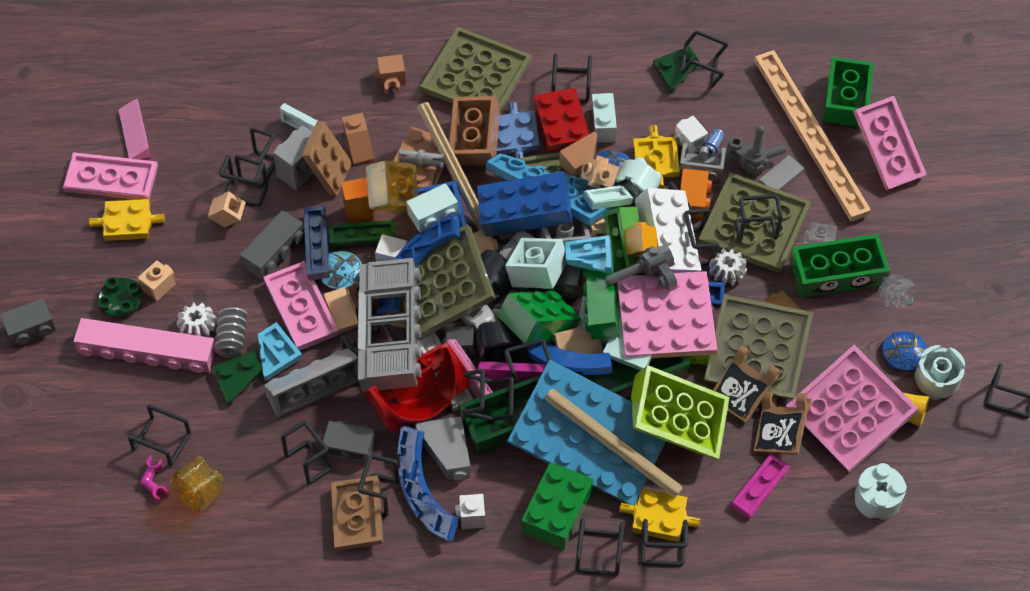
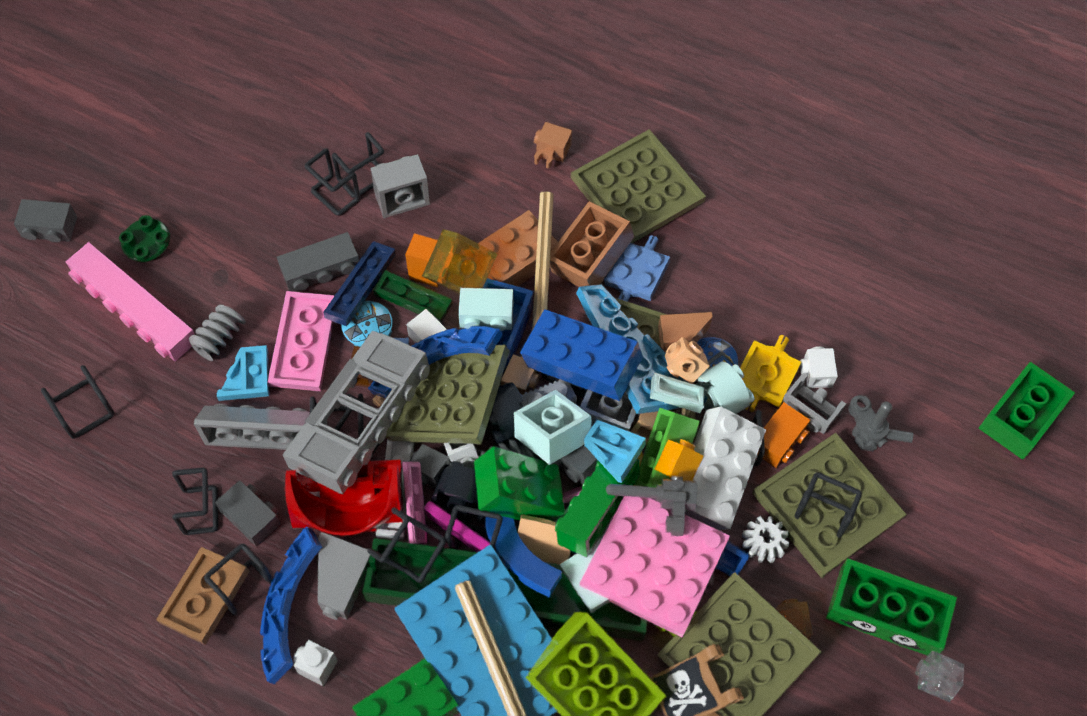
camera: 30 degrees right, 5 degrees up
(110, 176) = (222, 115): bright pink tile -> none
(126, 220) = (205, 166): yellow plate -> none
(134, 131) = (274, 82): bright pink slope -> none
(146, 480) = (38, 441): dark pink arm -> none
(157, 280) = (188, 241): light nougat brick -> none
(196, 320) = (194, 302): white gear -> none
(197, 484) = (73, 474): clear yellow brick -> none
(226, 209) = (298, 203): light nougat brick -> none
(237, 375) = (195, 379): dark green wing -> none
(296, 118) = (430, 149): light aqua tile -> none
(326, 158) = (421, 199): medium nougat plate -> none
(341, 310) = (338, 358): light nougat tile -> none
(357, 139) = (473, 196): nougat slope -> none
(421, 158) = (511, 249): light grey pin -> none
(559, 119) = (689, 280): red brick -> none
(570, 69) = (753, 239): black piece -> none
(604, 117) = (736, 301): light aqua brick -> none
(669, 68) = (853, 284): dark green wing -> none
(696, 229) = (761, 511): black piece -> none
(714, 70) = (889, 316): black piece -> none
(714, 142) = (840, 388): medium blue pin -> none
(782, 174) = (894, 465): light grey tile -> none
(812, 136) = (955, 442): light nougat plate -> none
(819, 233) = (891, 559): clear brick -> none
(890, 143) = (1038, 495): bright pink plate -> none

